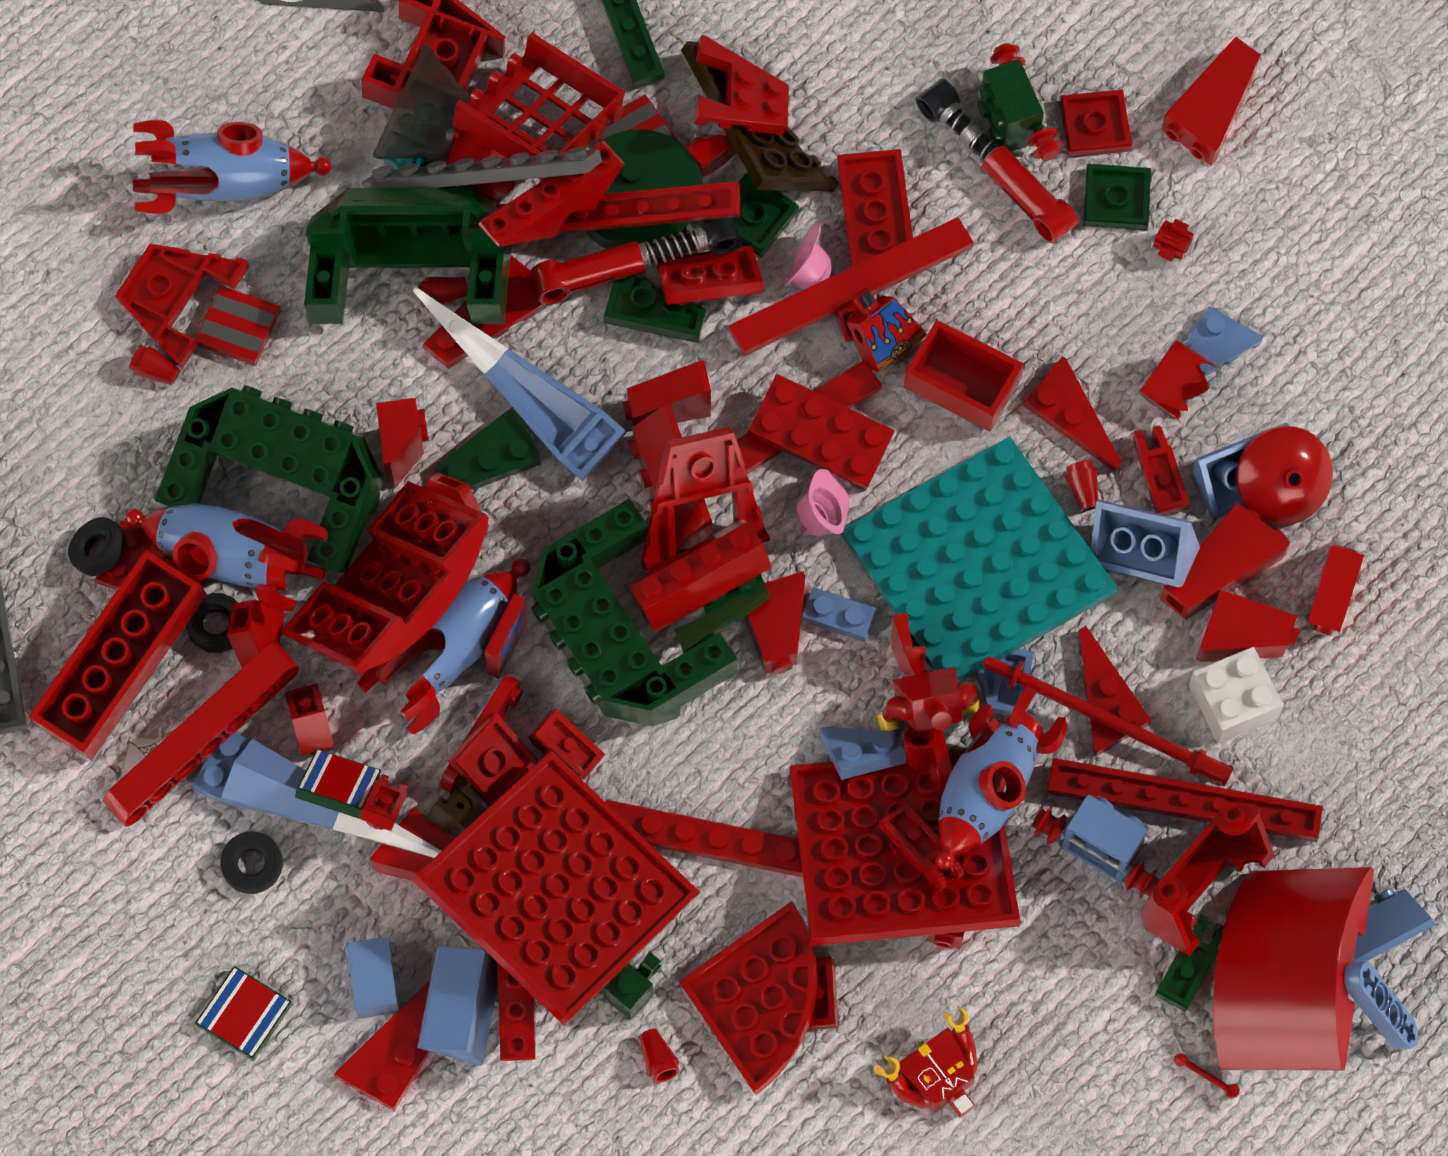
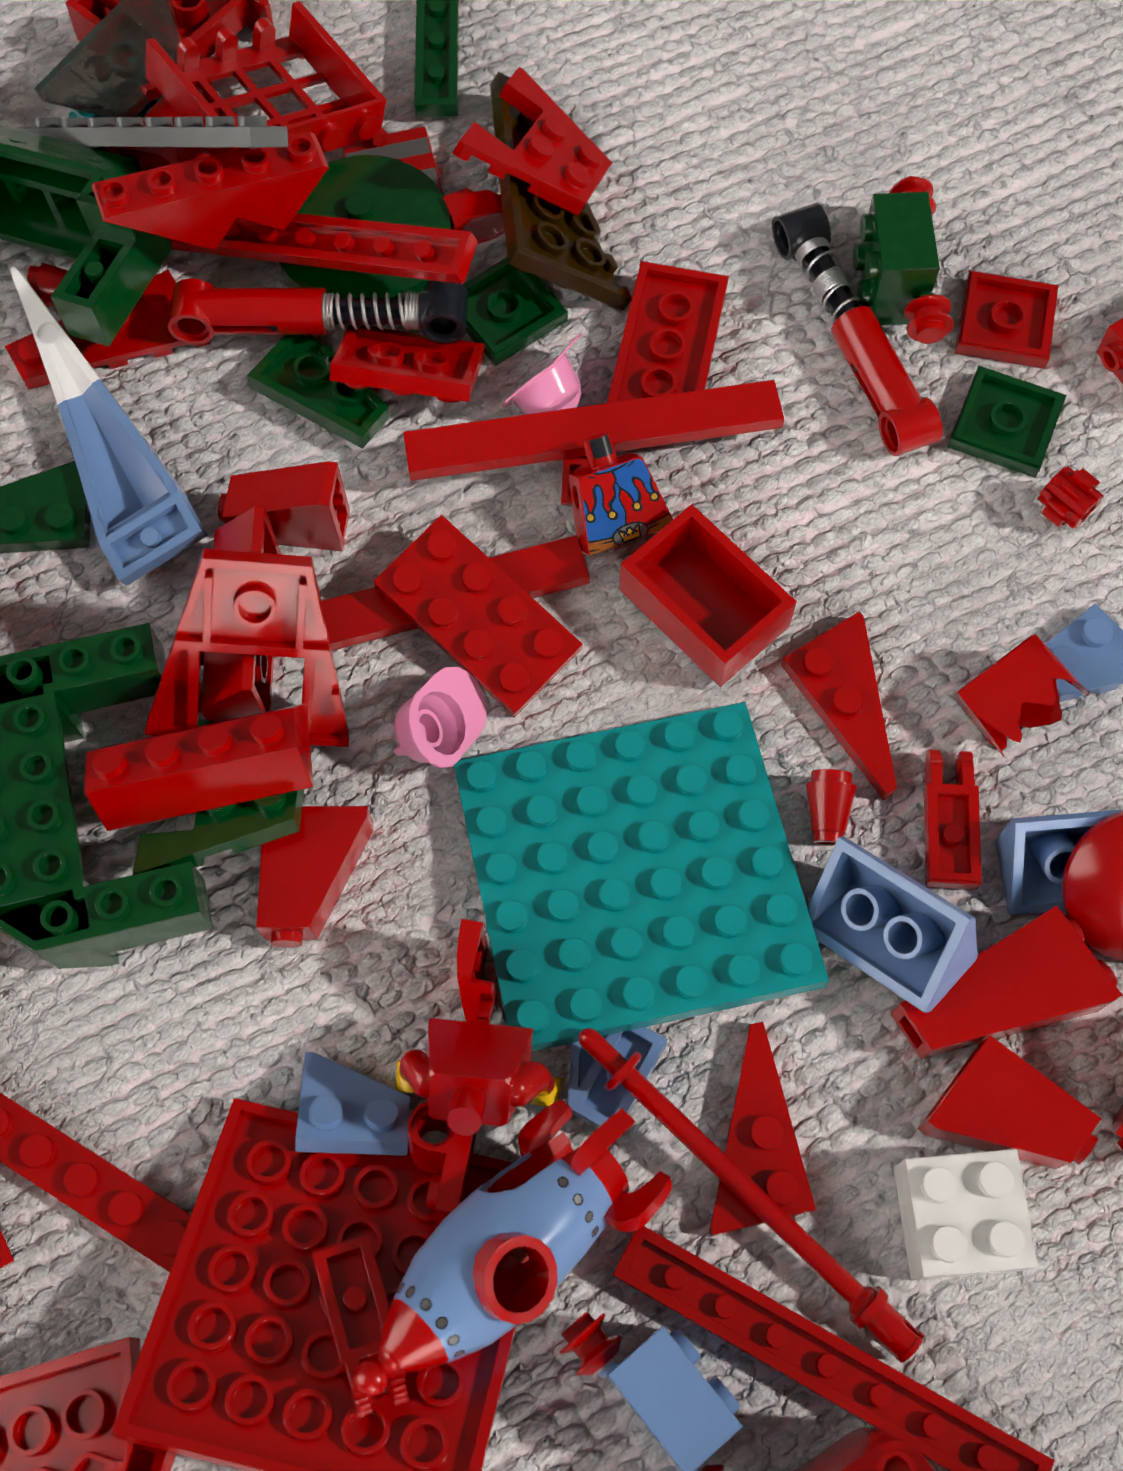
camera: 20 degrees right, 0 degrees up
(838, 614) = (404, 885): medium blue plate -> none

